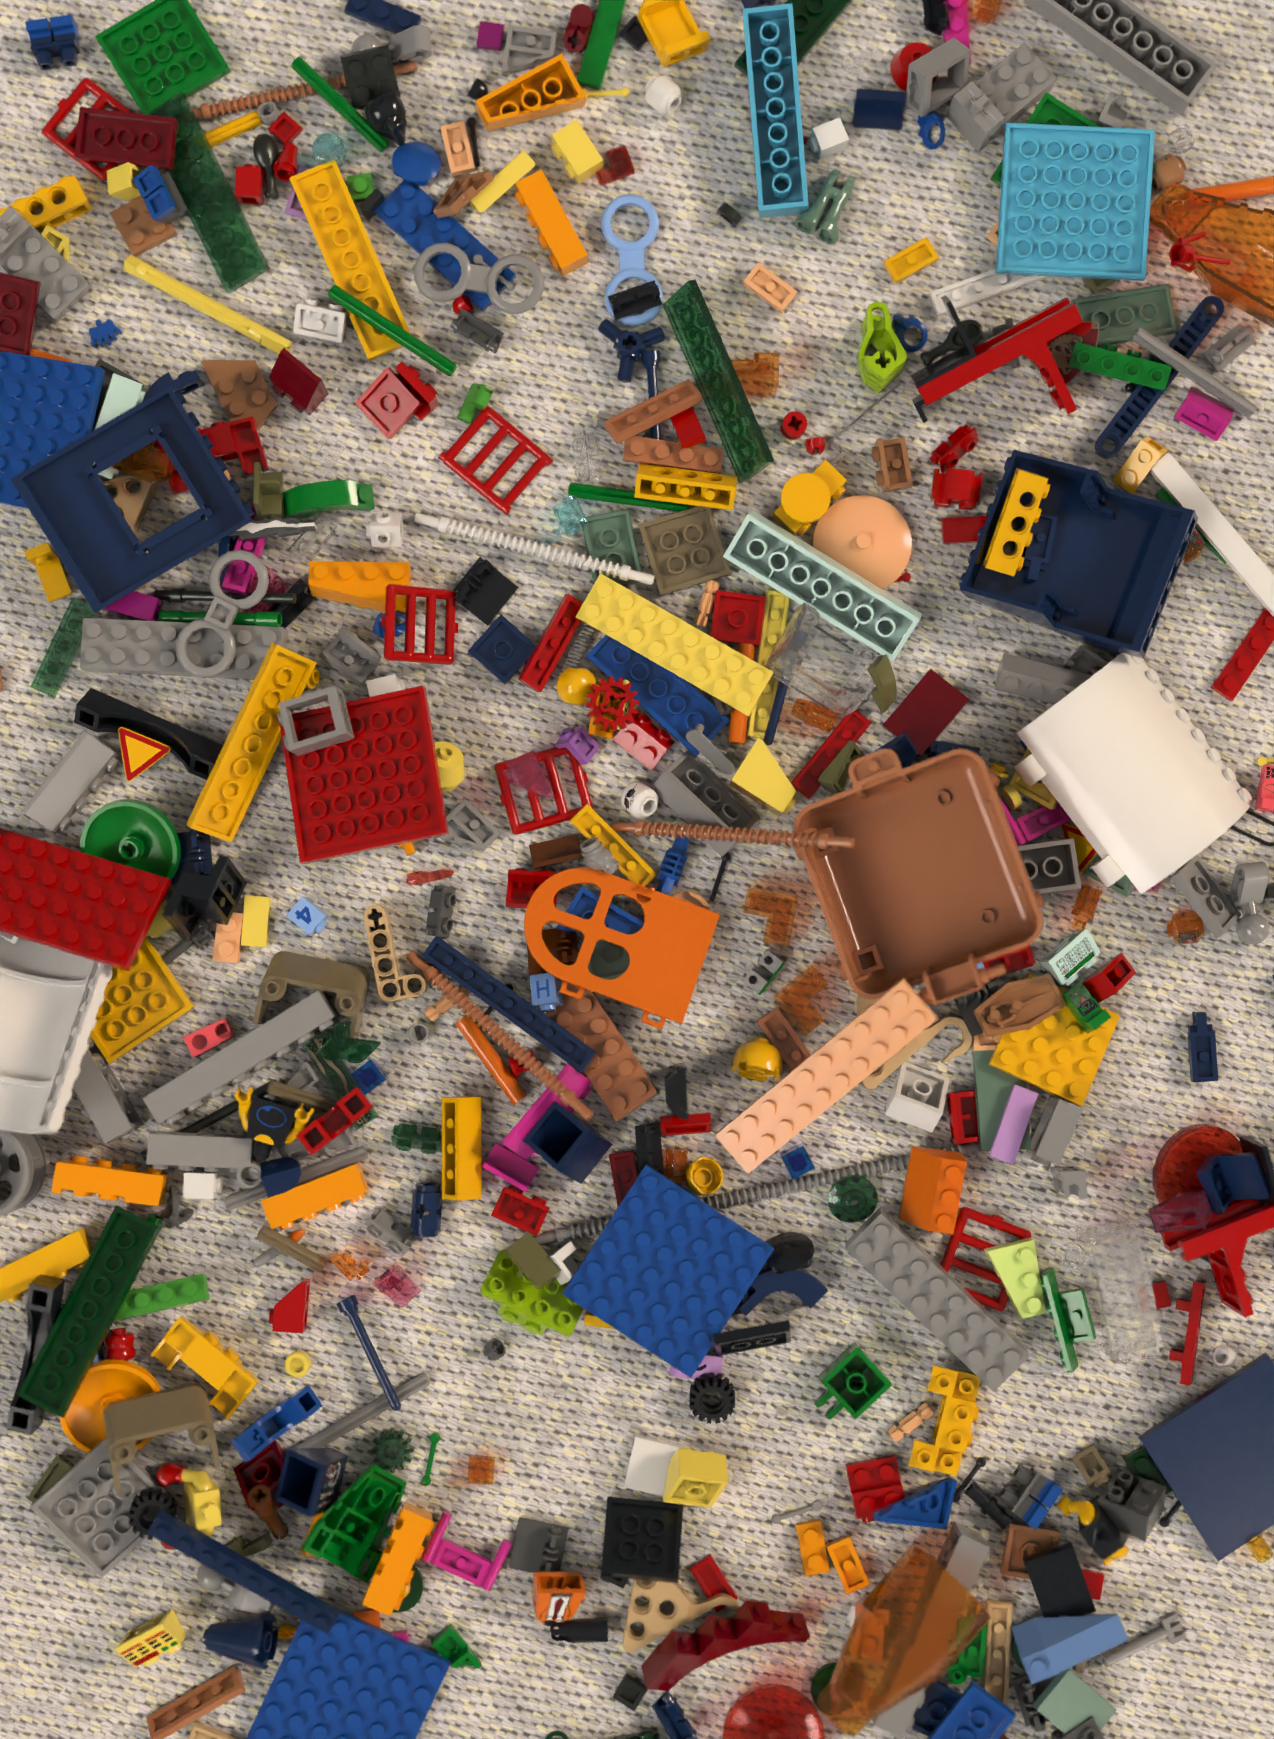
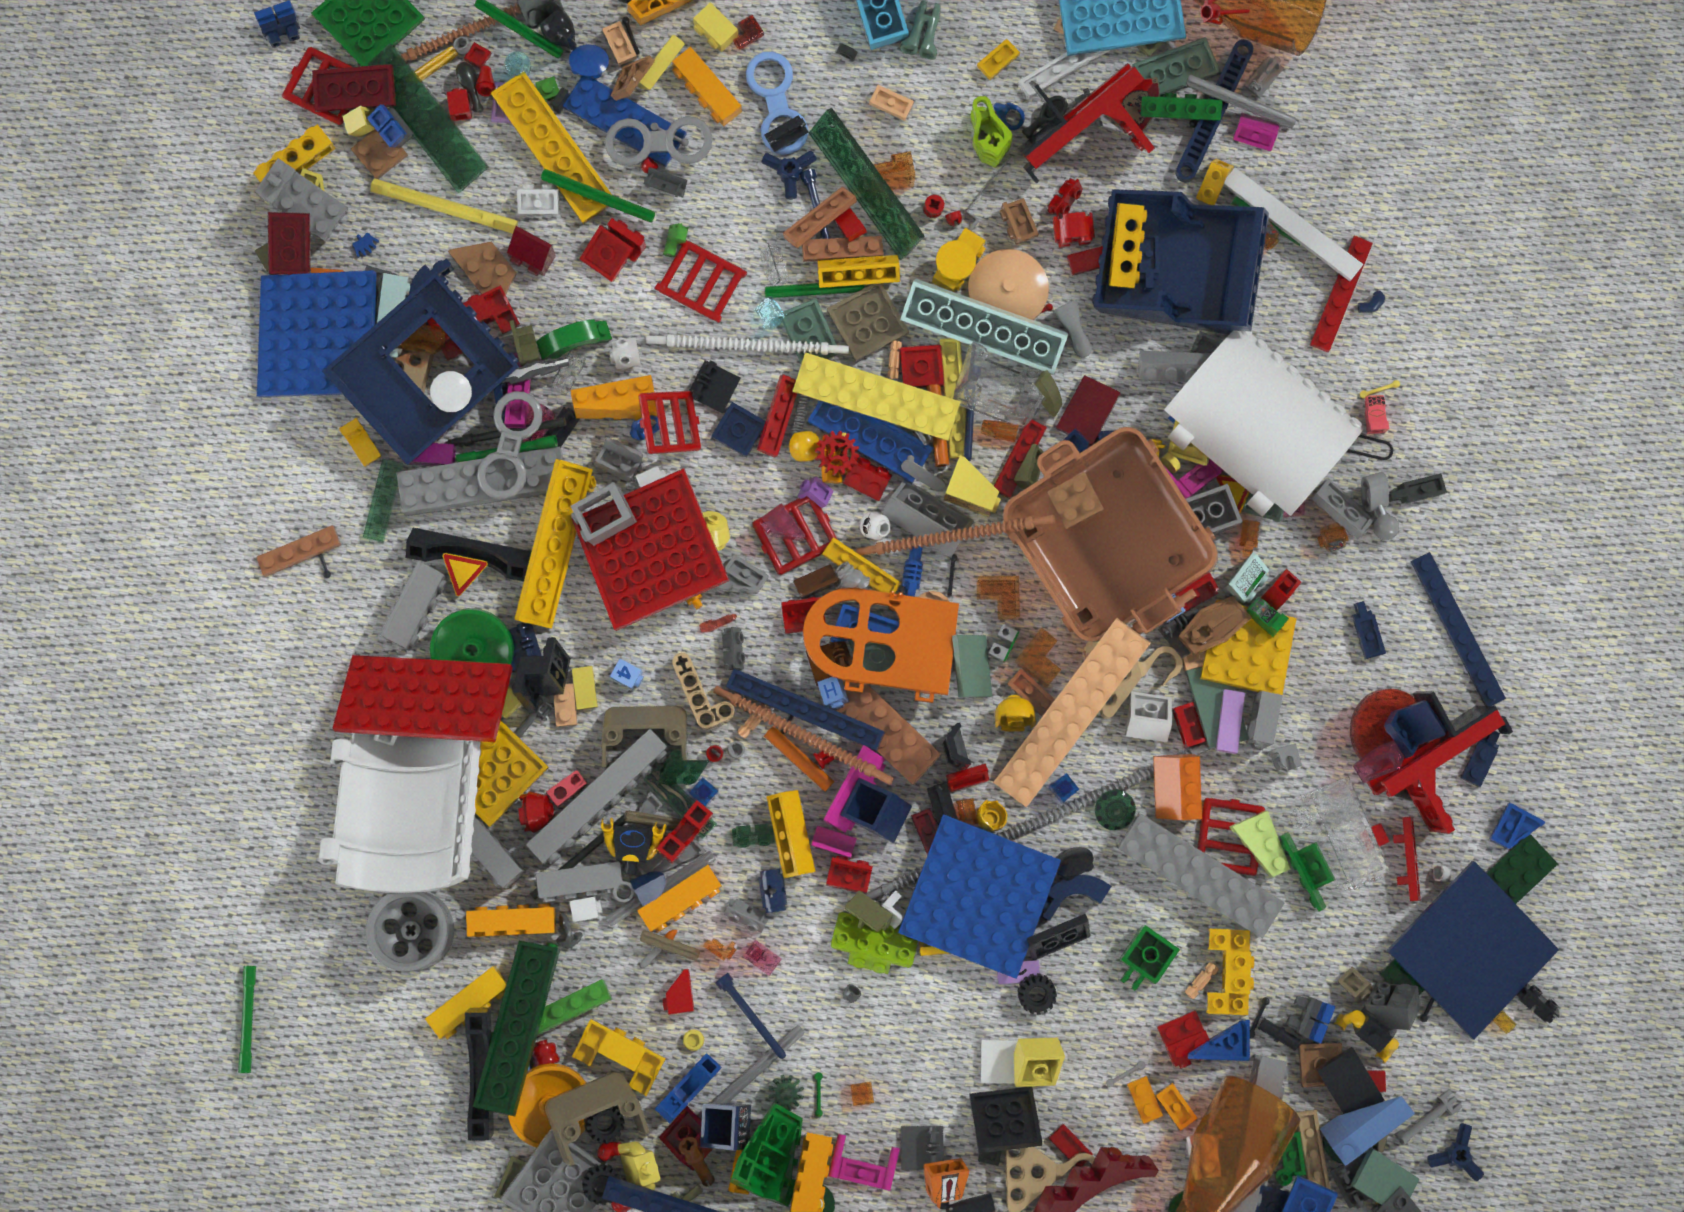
camera: 15 degrees left, 5 degrees down
(163, 534) = (450, 391): none -> white dish
(165, 1058) = (535, 811): none -> red cone
(171, 1453) = (609, 1133): none -> black tyre
(389, 1035) = (712, 756): none -> red hinge
(719, 993) = (972, 666): none -> sand green tile
(884, 825) = (1075, 500): none -> medium nougat plate
(928, 598) = (1069, 318): none -> light grey piece
(1158, 1690) = (1449, 1155): none -> dark blue bush

